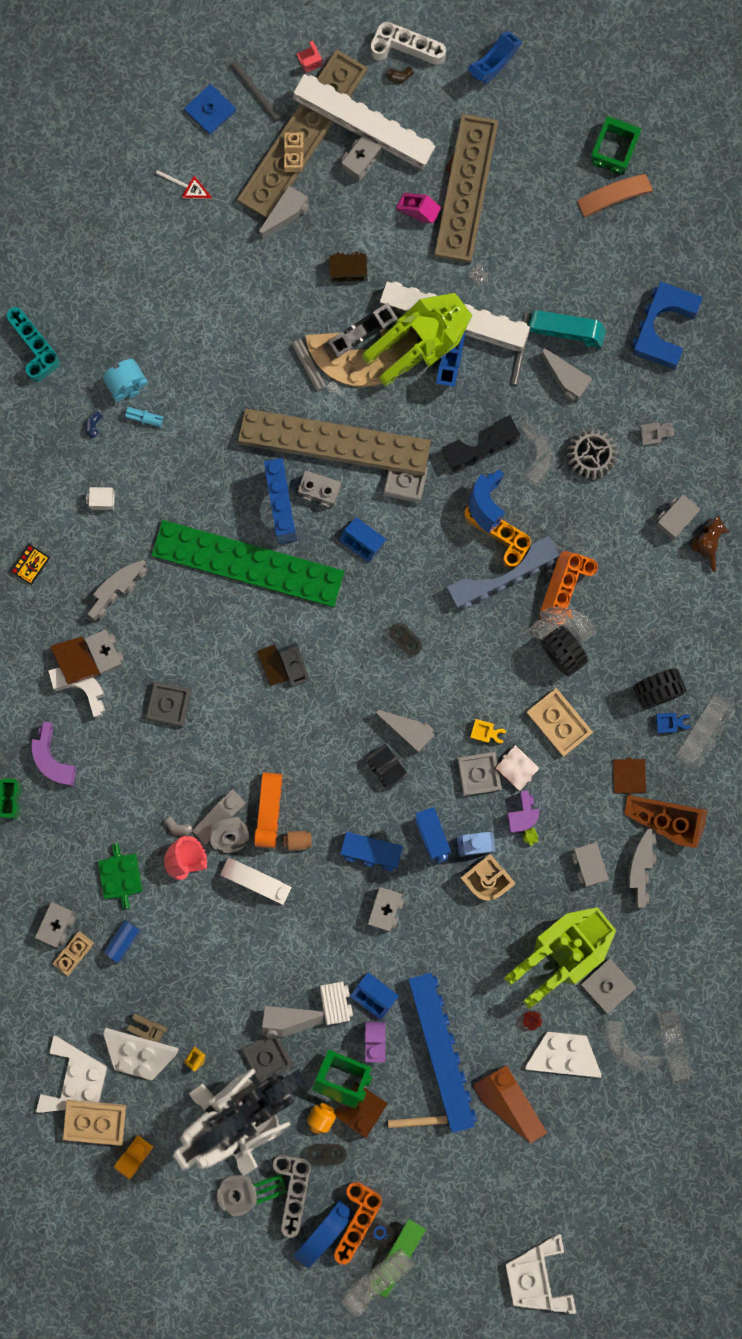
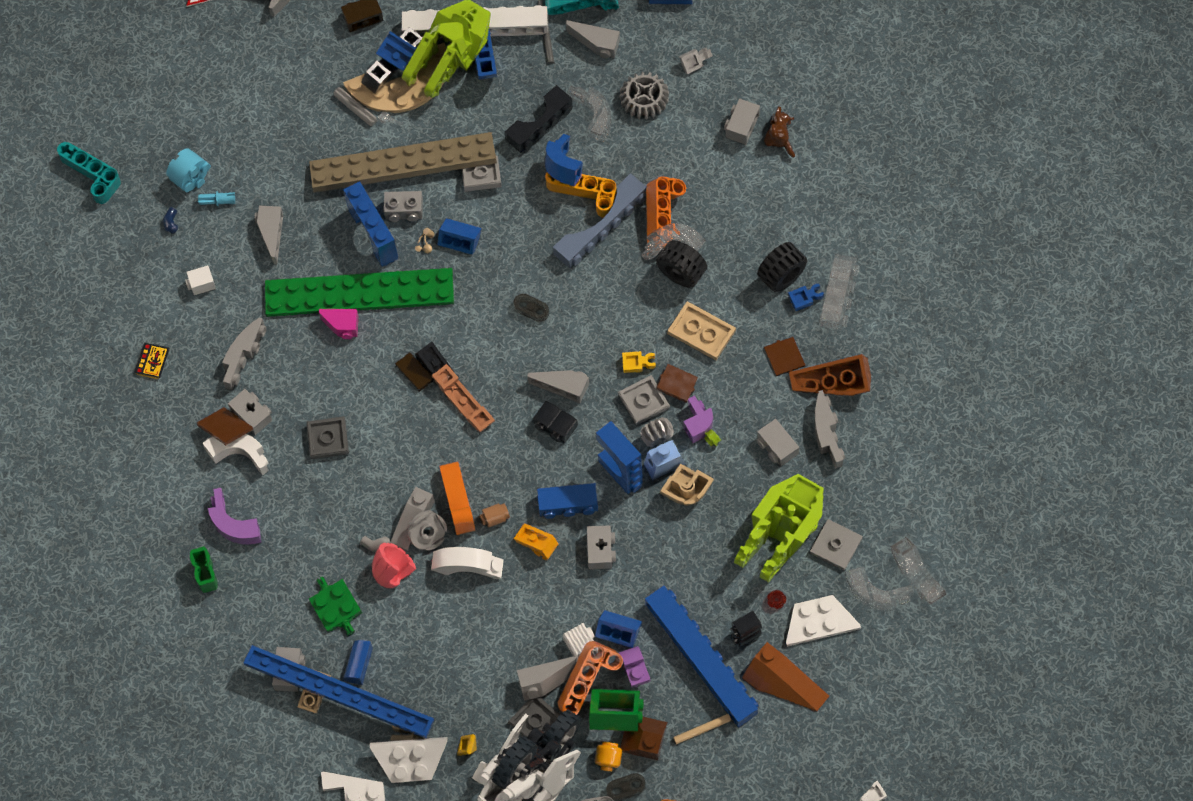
camera: 20 degrees left, 15 degrees down
(93, 969) = (339, 691): none -> blue plate
(185, 464) = (270, 226): none -> light grey slope
(220, 590) = (341, 321): none -> dark pink slope
(308, 711) = (462, 399): none -> nougat slope
(326, 1035) = (586, 680): none -> orange beam
(327, 880) = (537, 540): none -> light orange plate
(328, 540) = (426, 248): none -> tan piece
(366, 326) = (396, 51): none -> blue plate
(479, 813) = (657, 432): none -> light grey gear
(491, 1044) = (745, 629): none -> black brick

